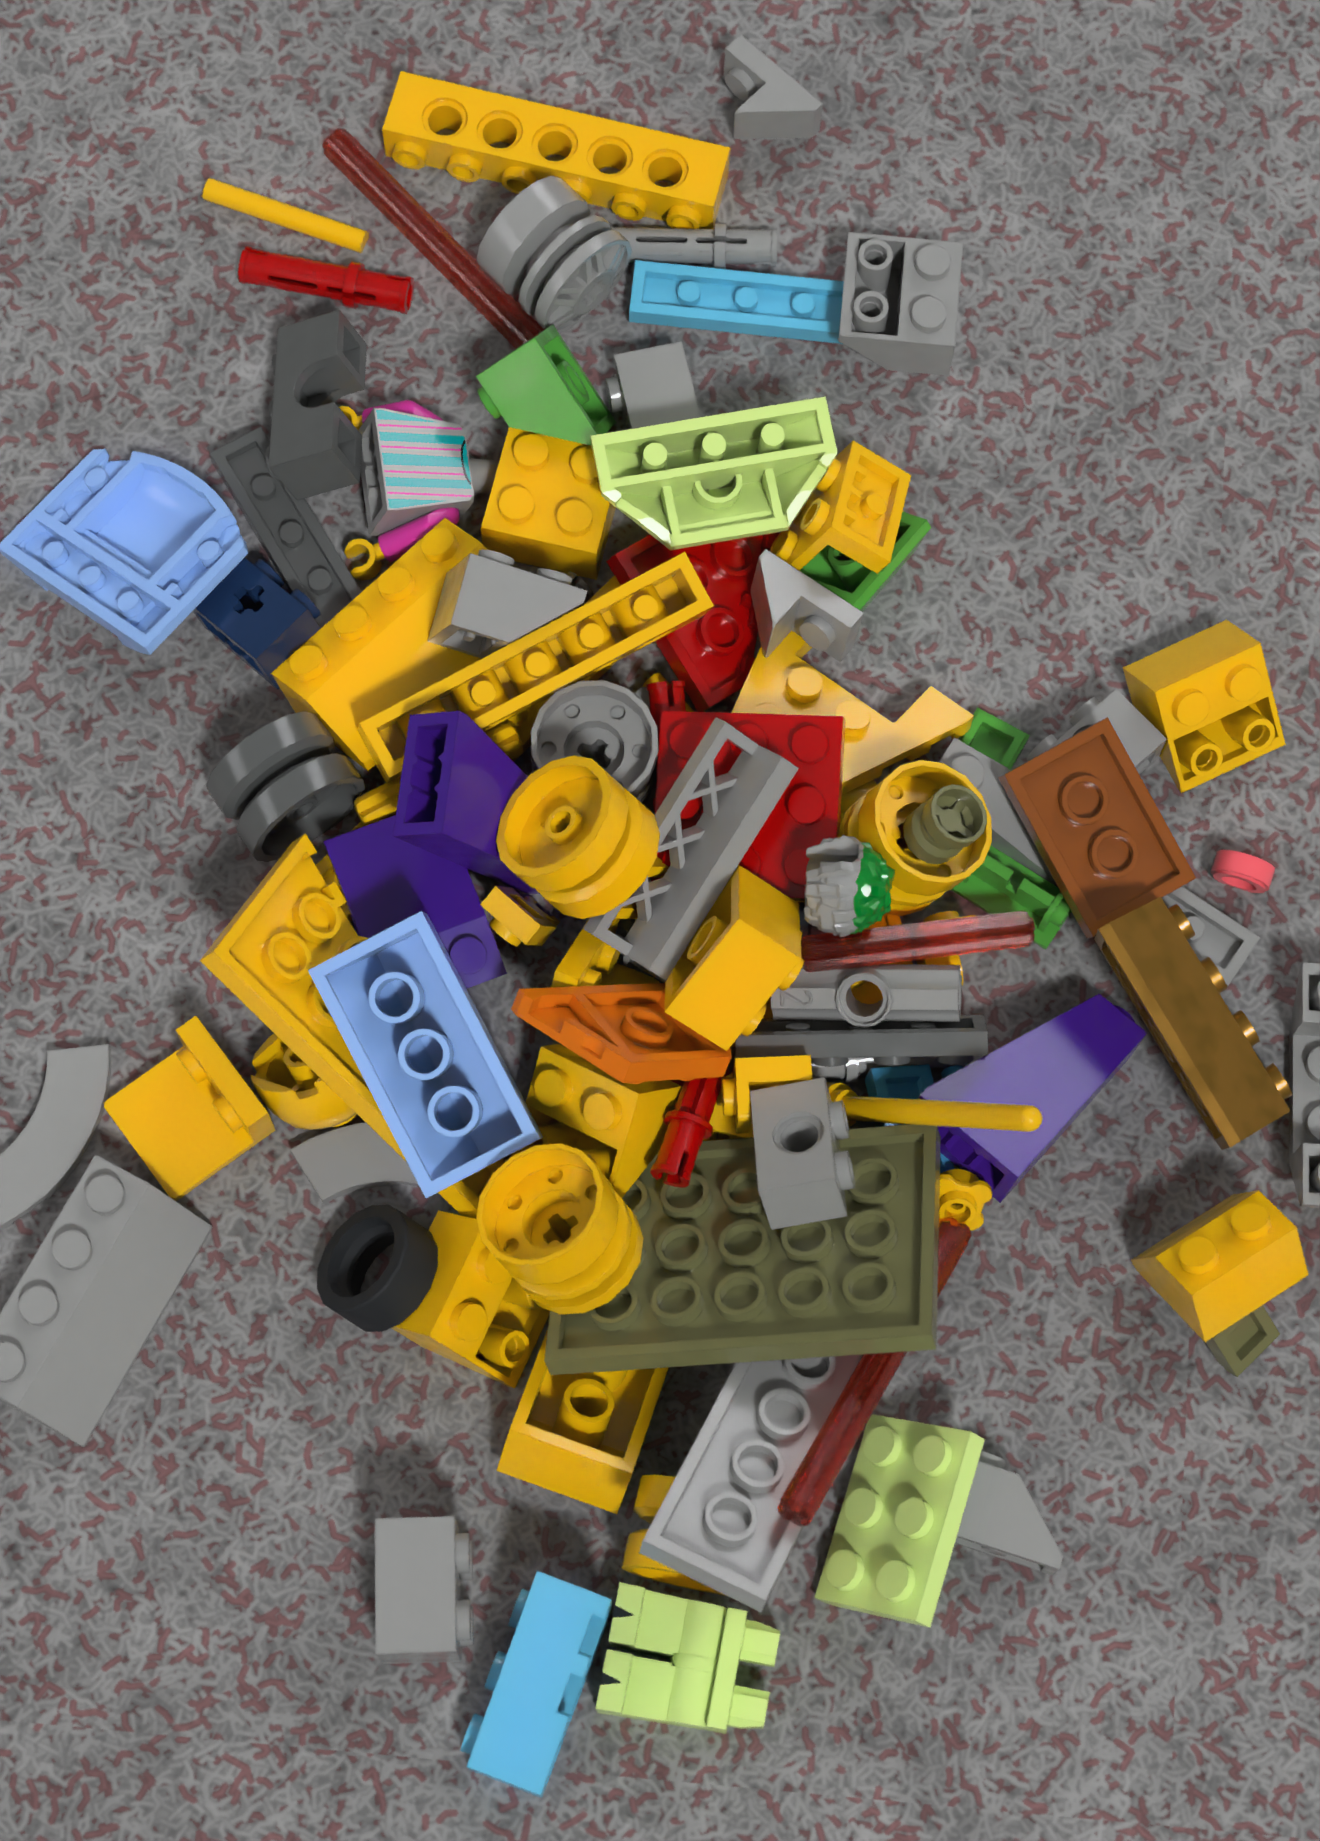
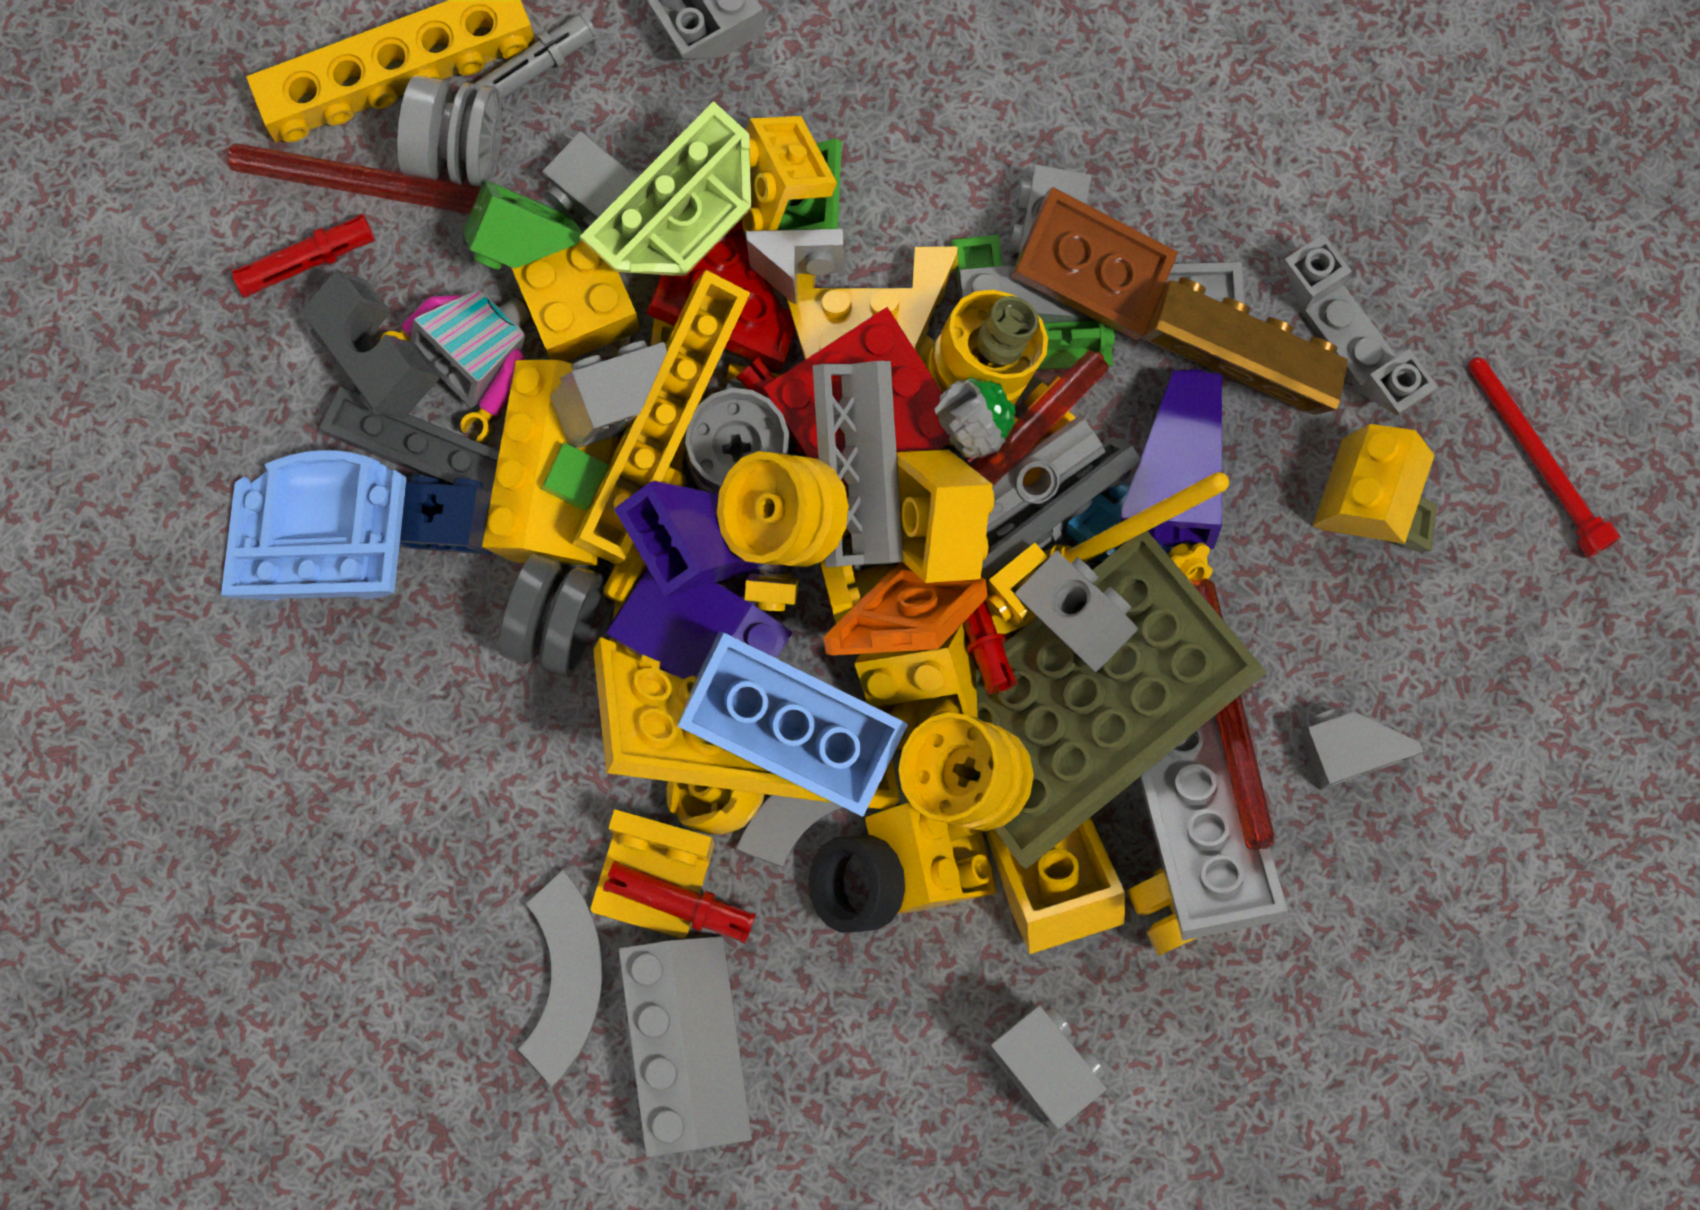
camera: 35 degrees left, 5 degrees up
(205, 1178) = (680, 902): none -> red pin
(285, 215) = (239, 231): yellow bar -> none
(408, 665) = (574, 476): none -> bright green tile
(537, 1683) = (1160, 1069): medium azure wedge -> none
(703, 1667) = (1253, 980): yellowish green hips -> none
(736, 301) = (592, 78): medium azure plate -> none
(900, 1519) = (1308, 796): yellowish green plate -> none
(1208, 702) = (1095, 131): yellow slope -> none
(1242, 871) = (1197, 227): coral tile -> none

